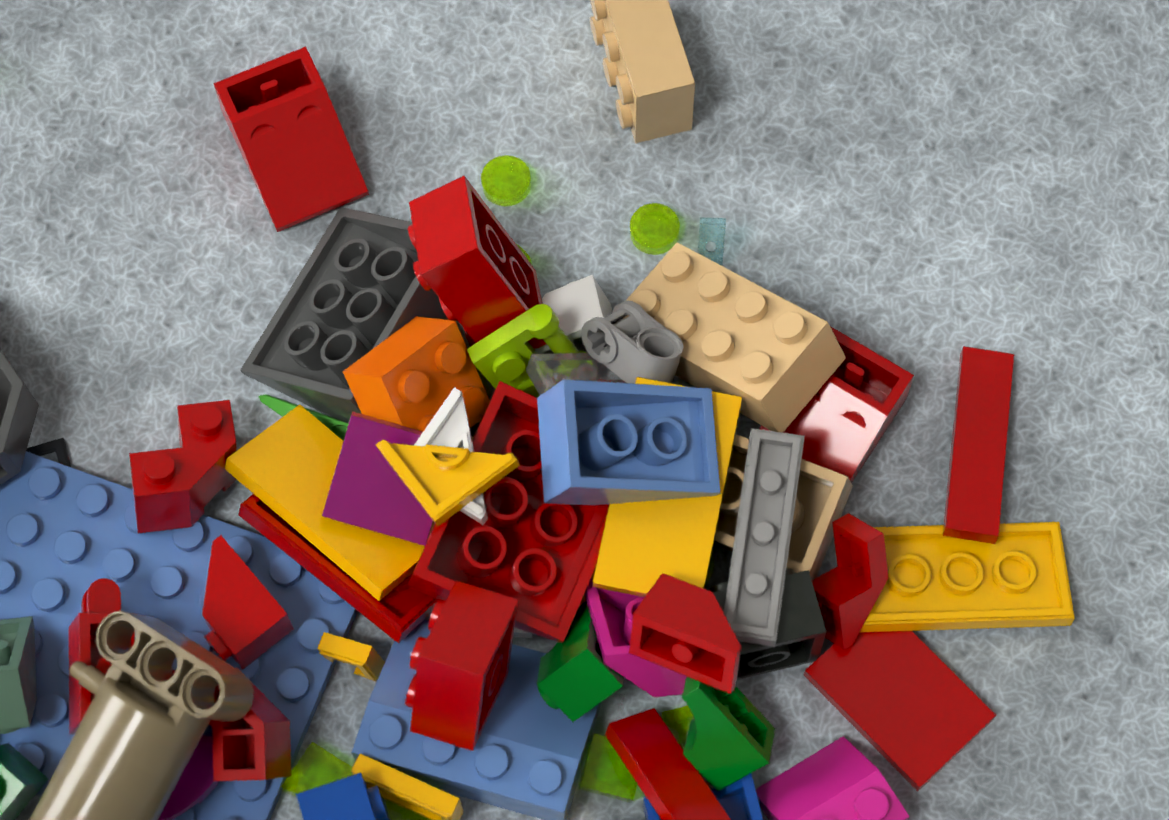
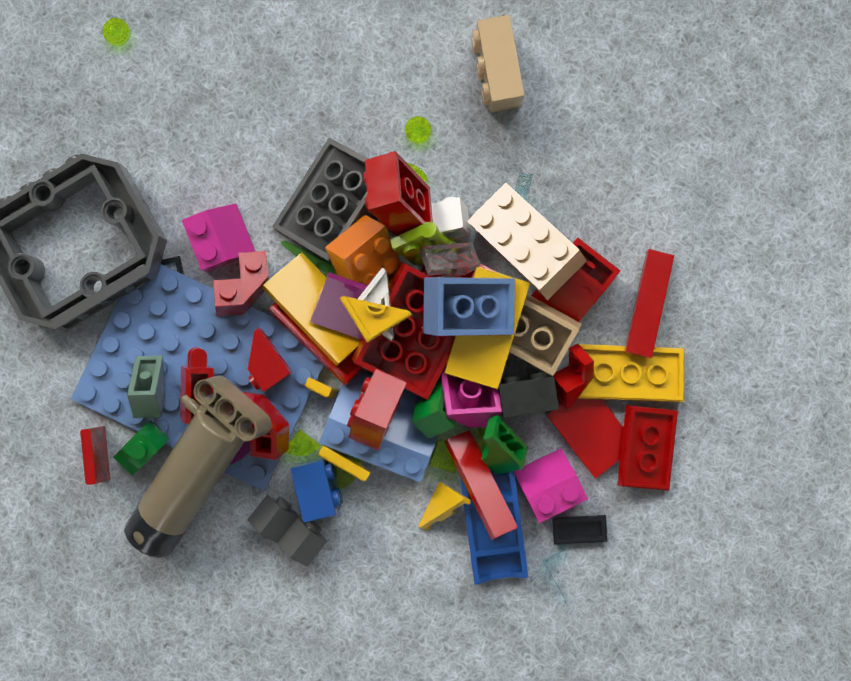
camera: 10 degrees right, 20 degrees up
(134, 390) = (218, 236): none -> dark pink slope
(291, 139) = (304, 99): red slope -> none
(636, 344) = (476, 244): light grey piece -> none
(654, 228) = (494, 165): clear neon green tile -> none
(686, 633) = (489, 408): red slope -> none
(763, 536) = (532, 357): light grey tile -> none
(1016, 717) = (647, 448): none -> red tile

